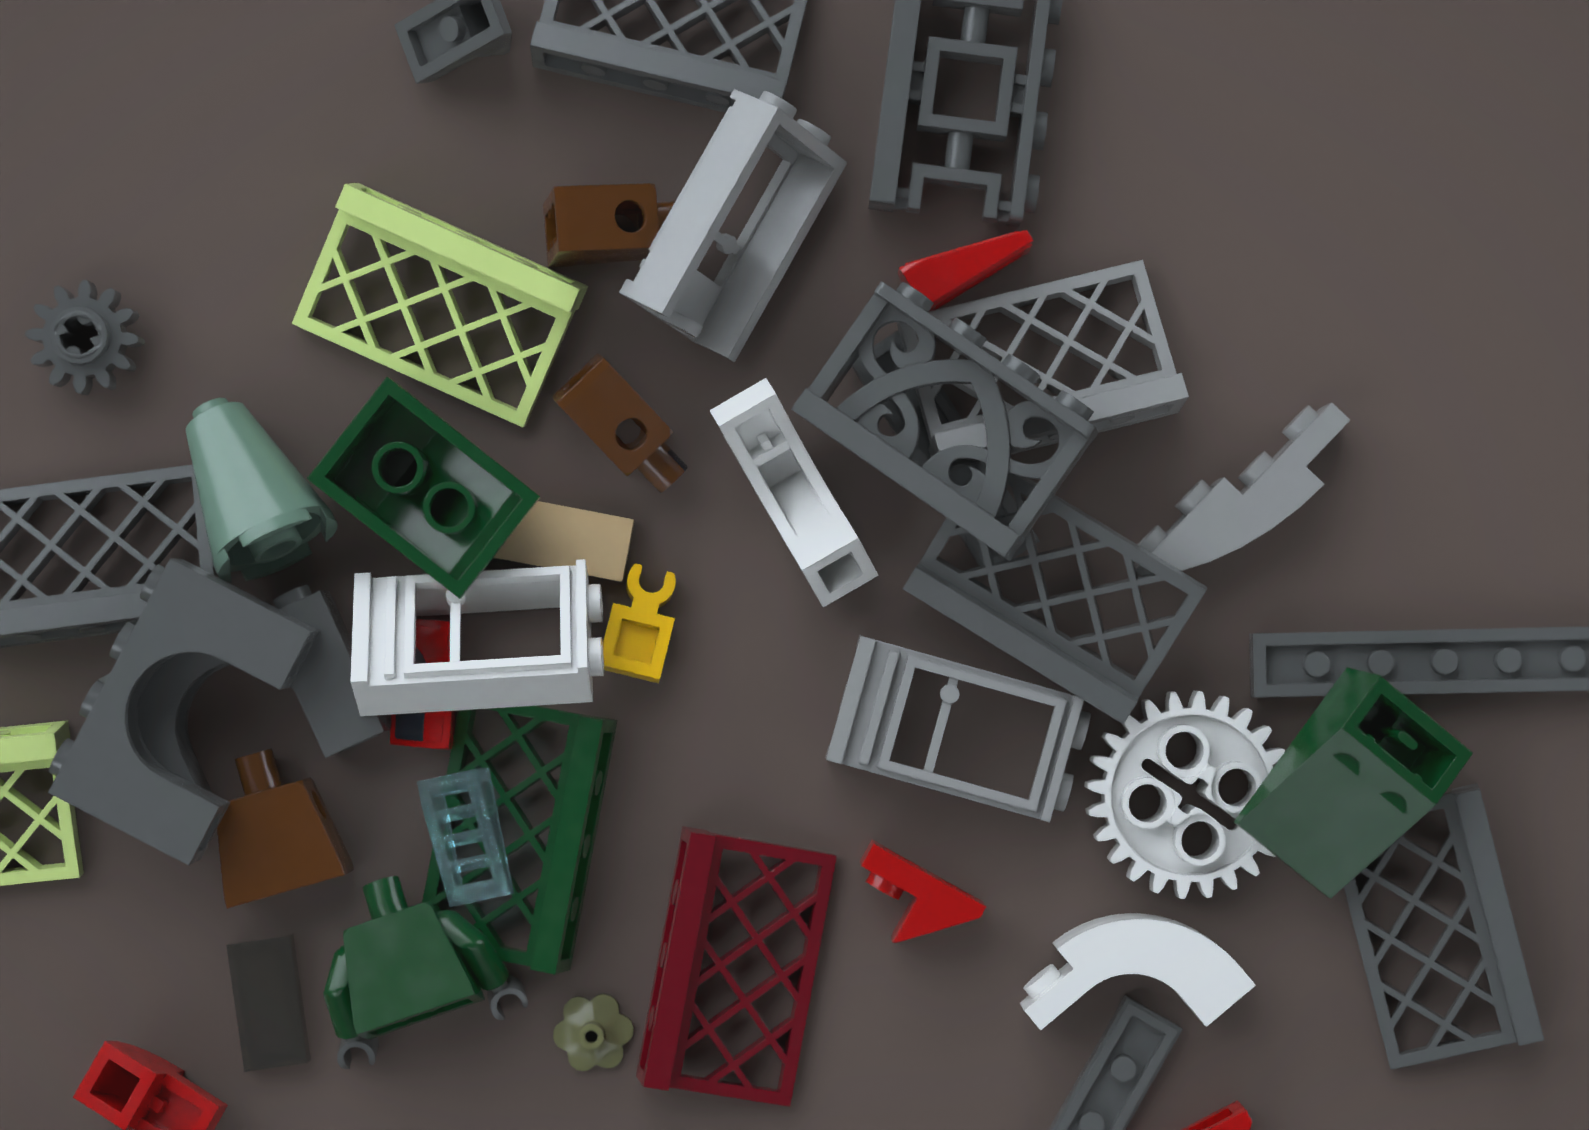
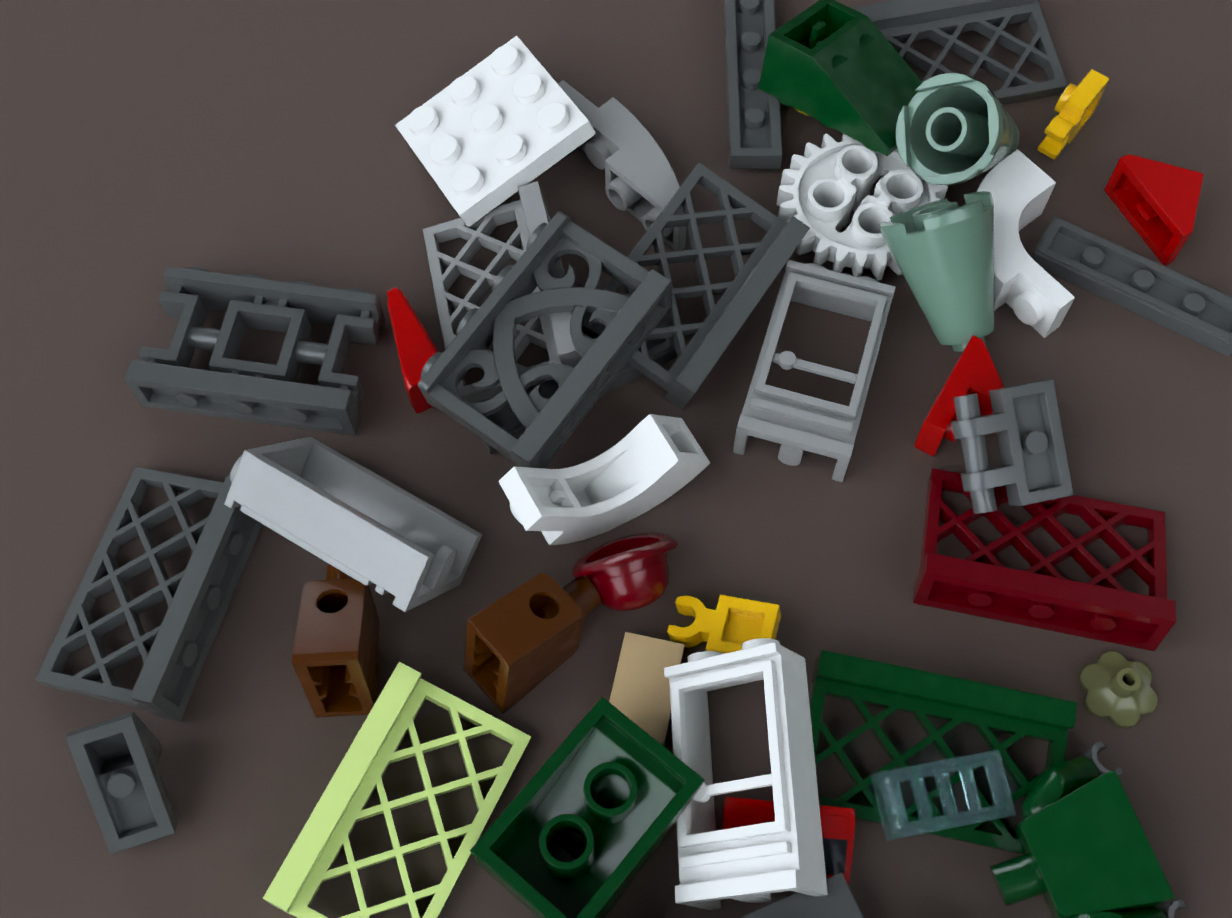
camera: 90 degrees left, 25 degrees down
(701, 518) = (628, 570): none -> dark red hat
(845, 957) = (1028, 443): none -> dark grey plate
(1082, 881) = (948, 264): none -> sand green cone
(1257, 910) = (954, 130): none -> sand green cone
(1275, 337) = (494, 130): none -> white plate
(1348, 1072) = (1074, 110): none -> yellow plate

